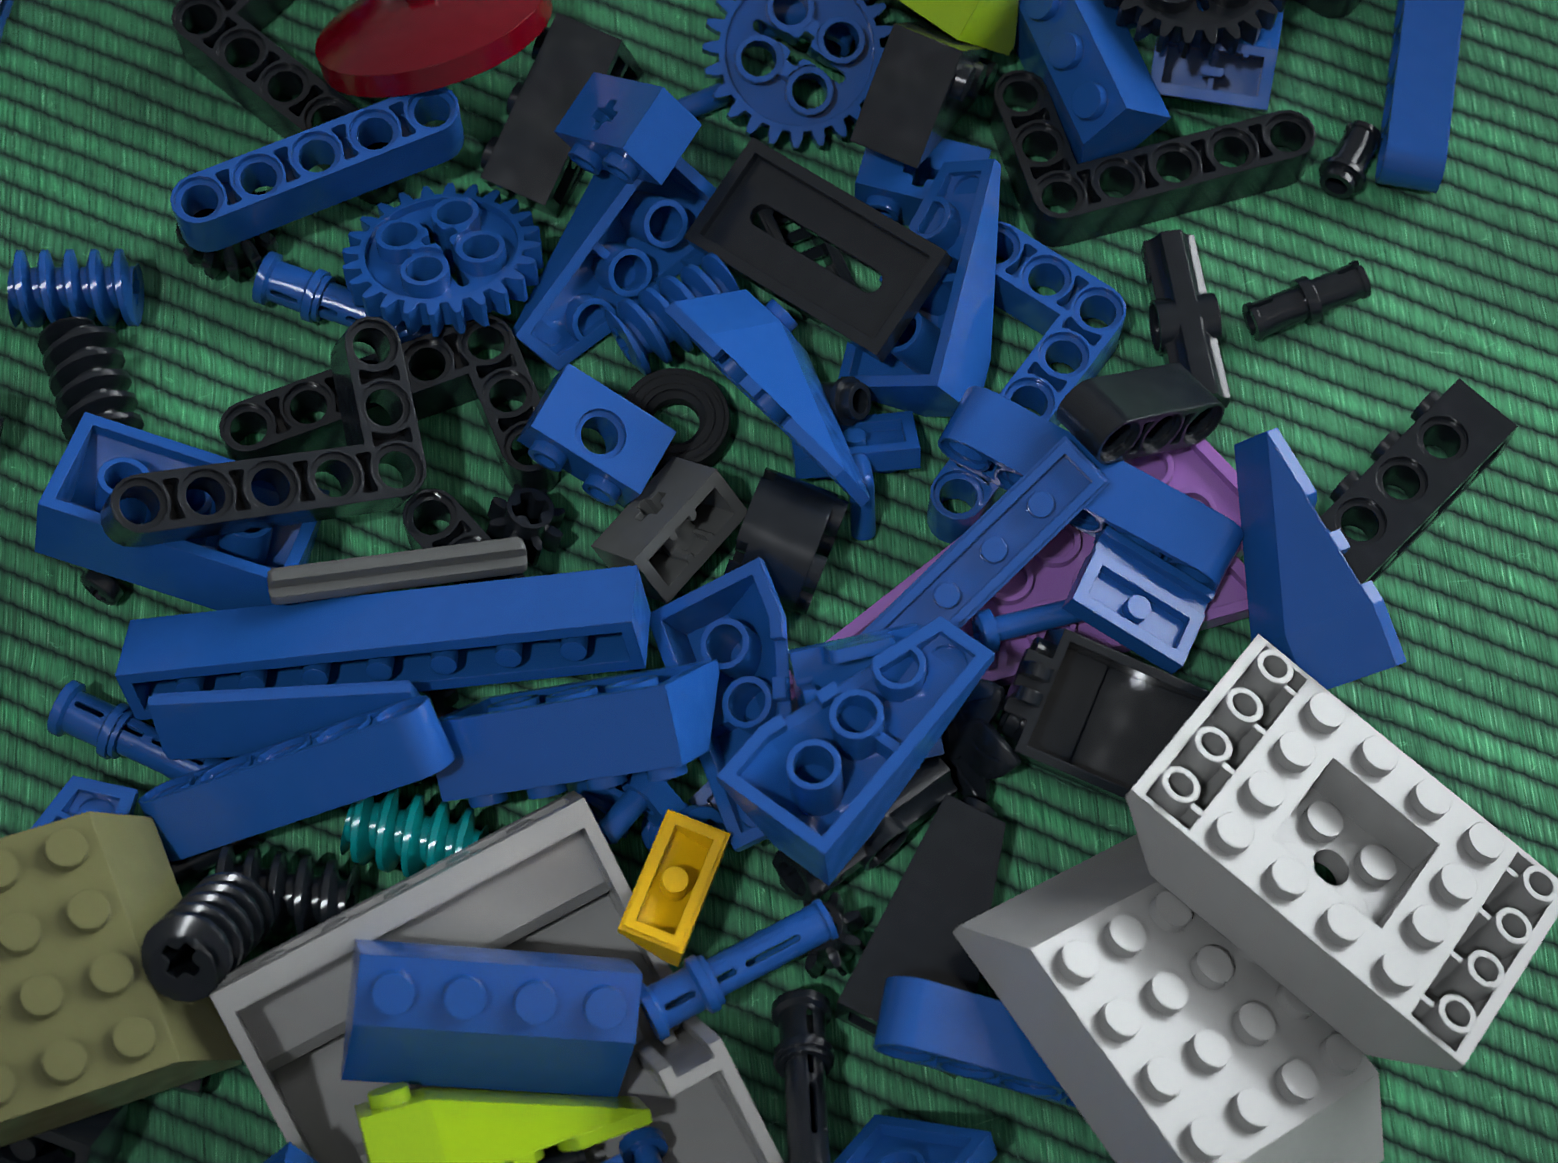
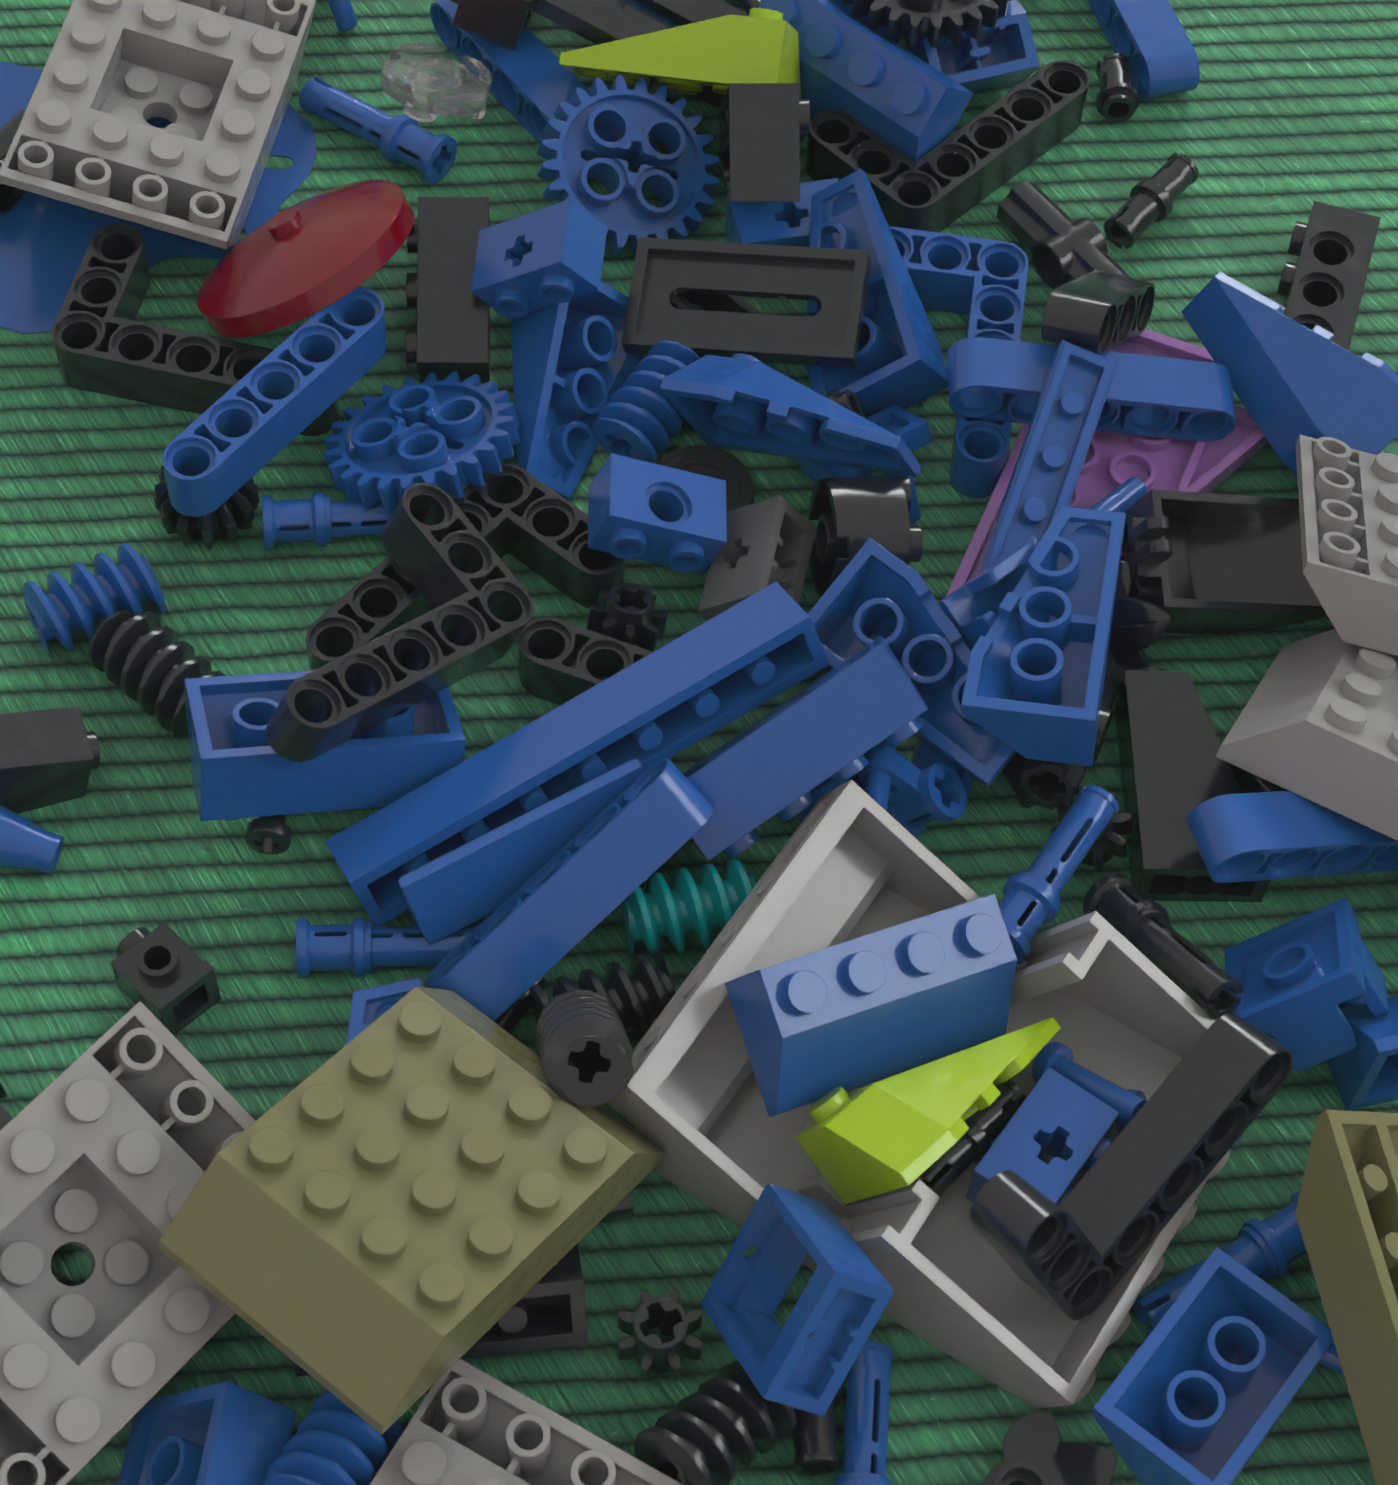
camera: 30 degrees left, 10 degrees down
(397, 570) = (552, 689): dark grey axle -> none
(673, 886) = (960, 830): yellow slope -> none
(1139, 600) = (1180, 454): blue plate -> none

